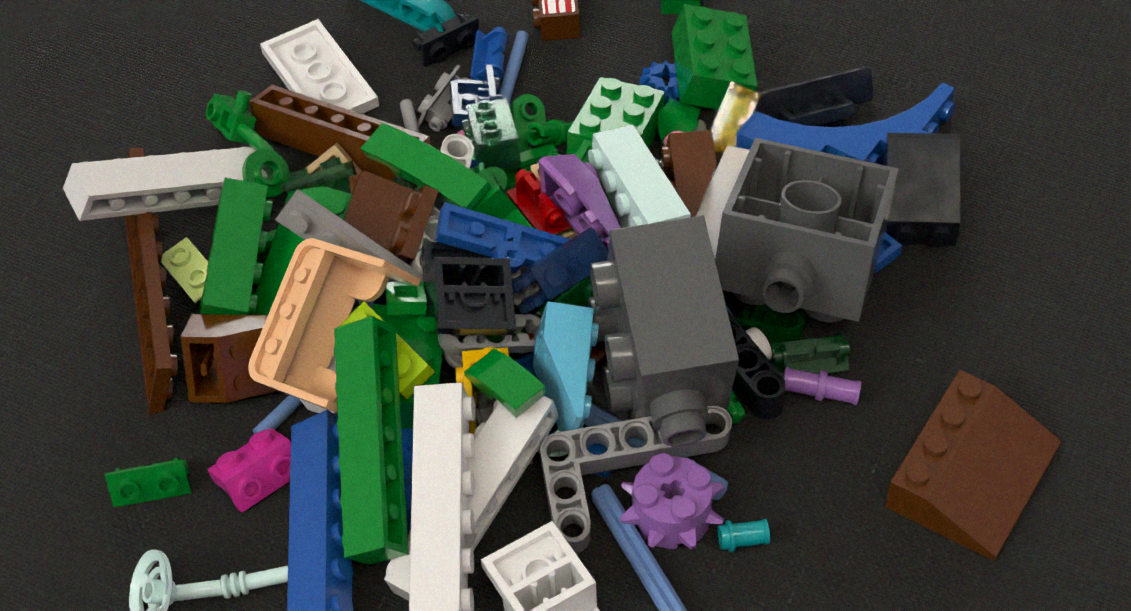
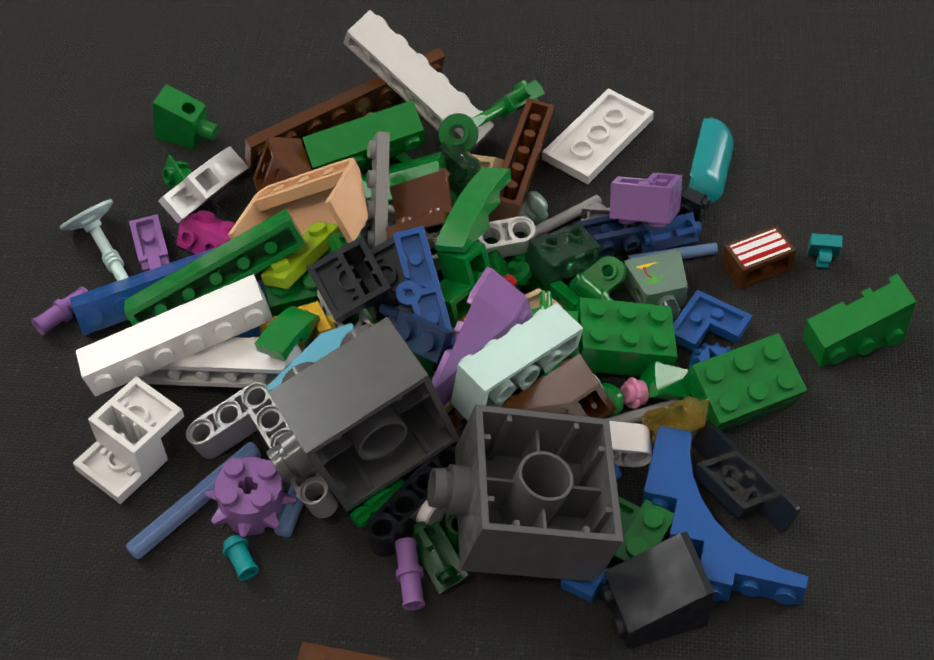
camera: 70 degrees right, 0 degrees up
(44, 451) = (181, 119): none -> green torso
(186, 439) = (203, 184): none -> white slope
(234, 535) = (149, 242): none -> medium lavender hinge
(462, 43) = (646, 200): none -> medium lavender brick
(554, 83) = (658, 280): none -> sand green torso
(614, 60) = (707, 314): none -> blue plate

